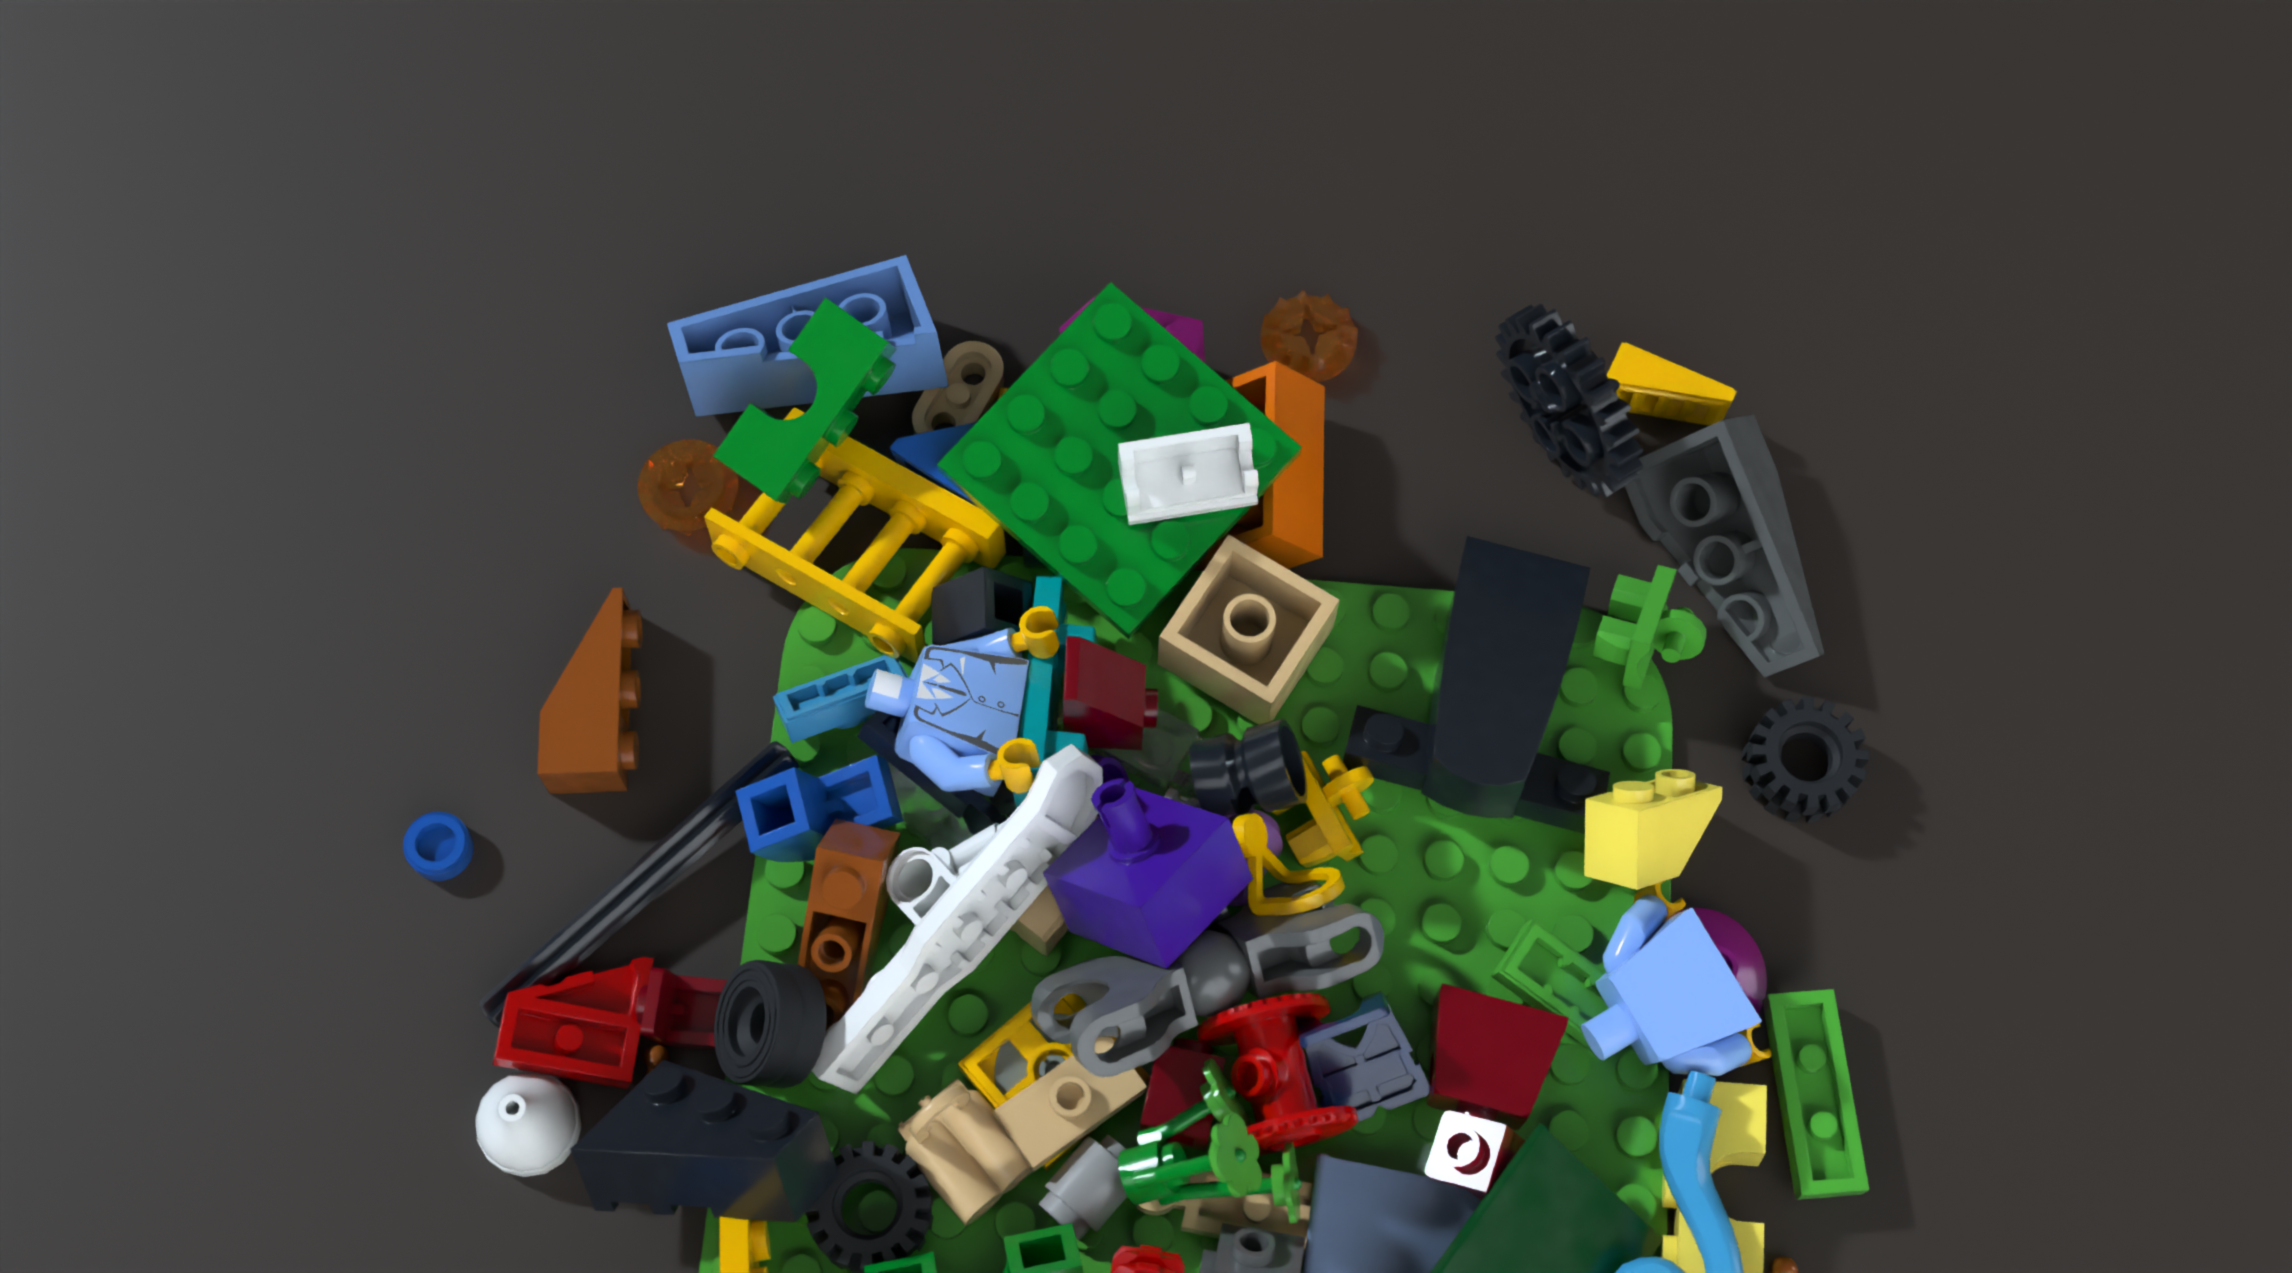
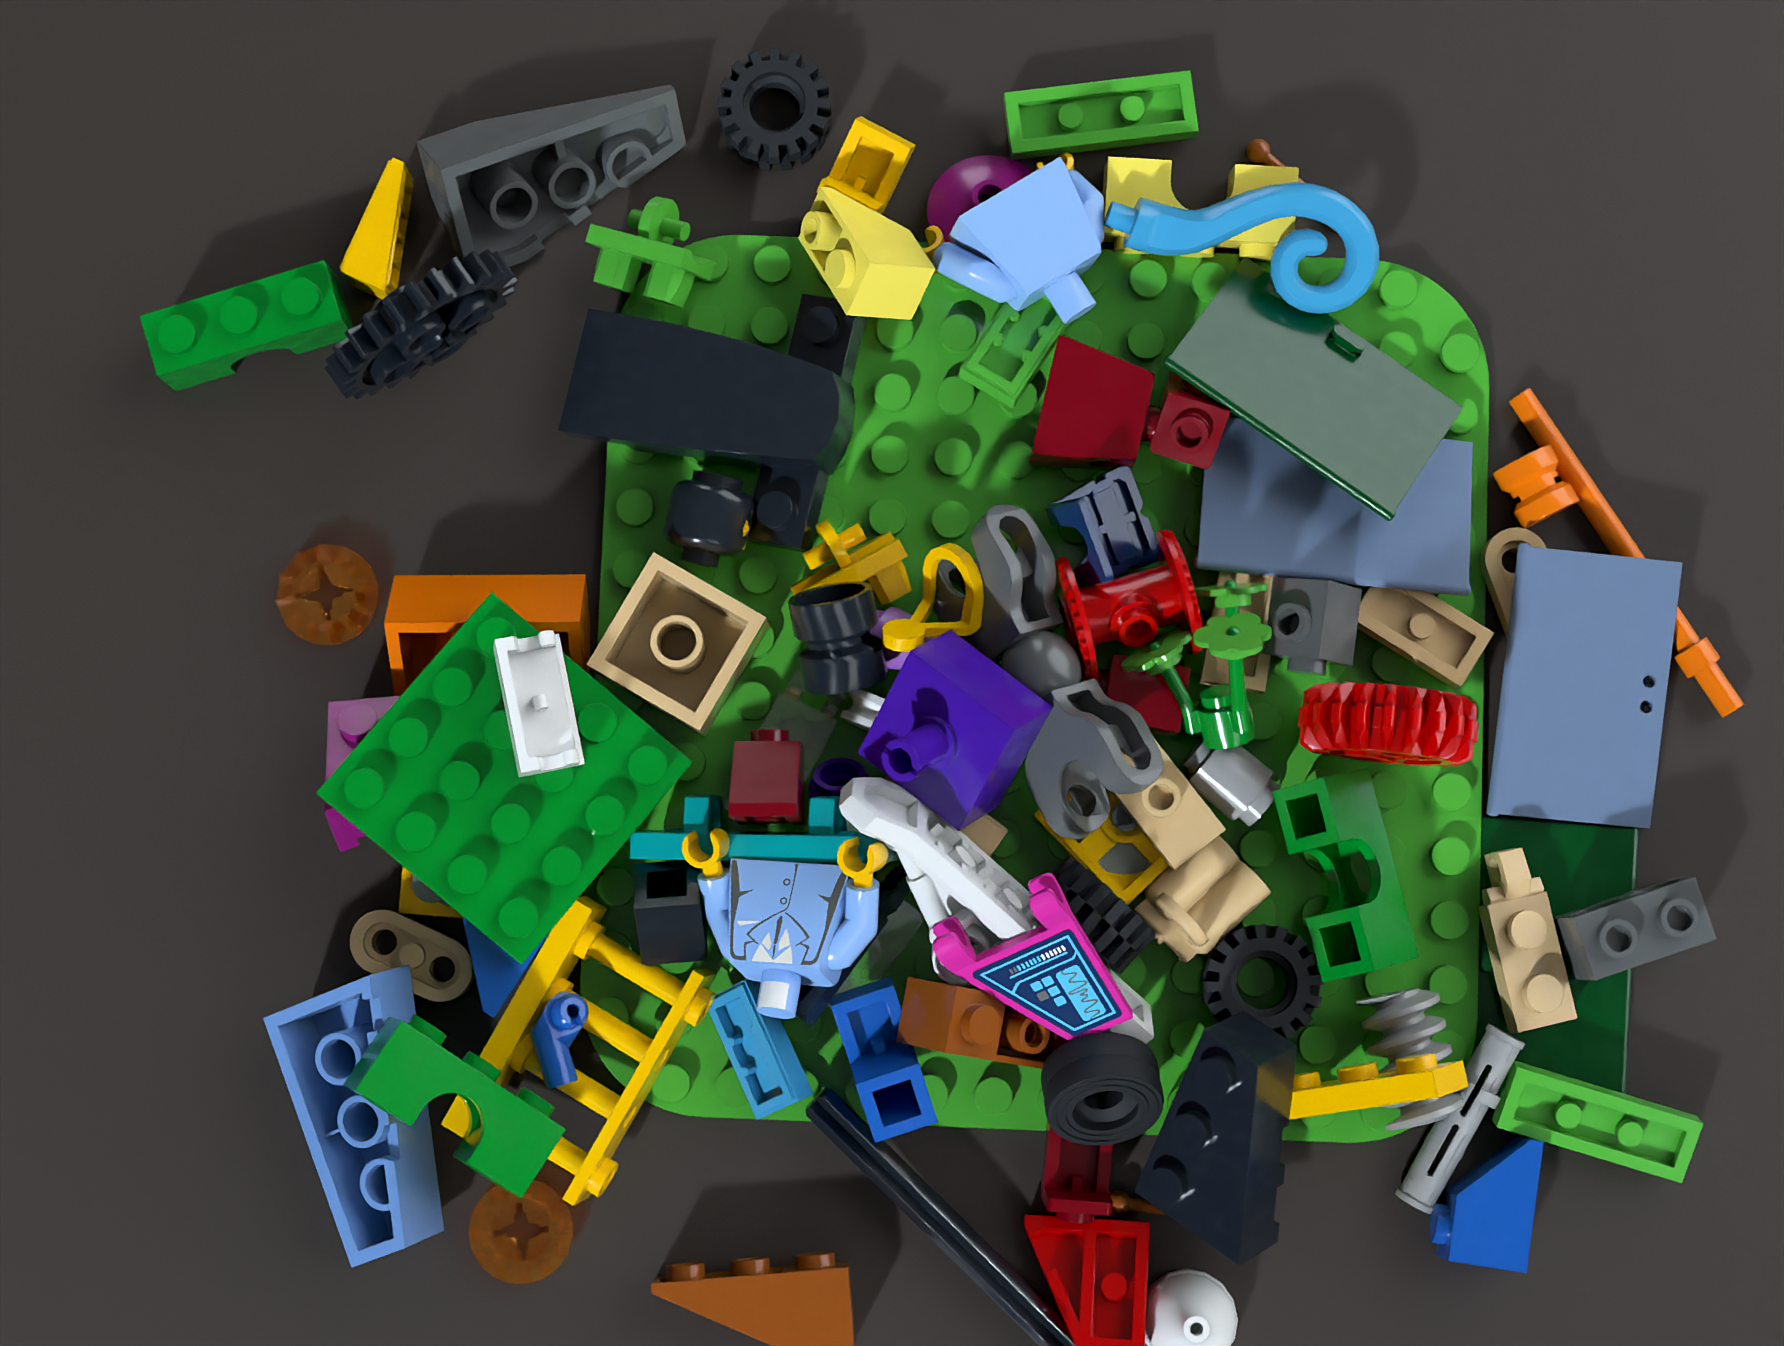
camera: 90 degrees left, 15 degrees up
(868, 504) = (554, 1034): none -> blue arm
(895, 951) = (1044, 972): none -> flag
(950, 1024) = (1105, 918): none -> black tyre
(1376, 668) = (708, 518): none -> black head
(1559, 235) = (210, 333): none -> green arch
(1746, 848) = (869, 164): none -> yellow bracket

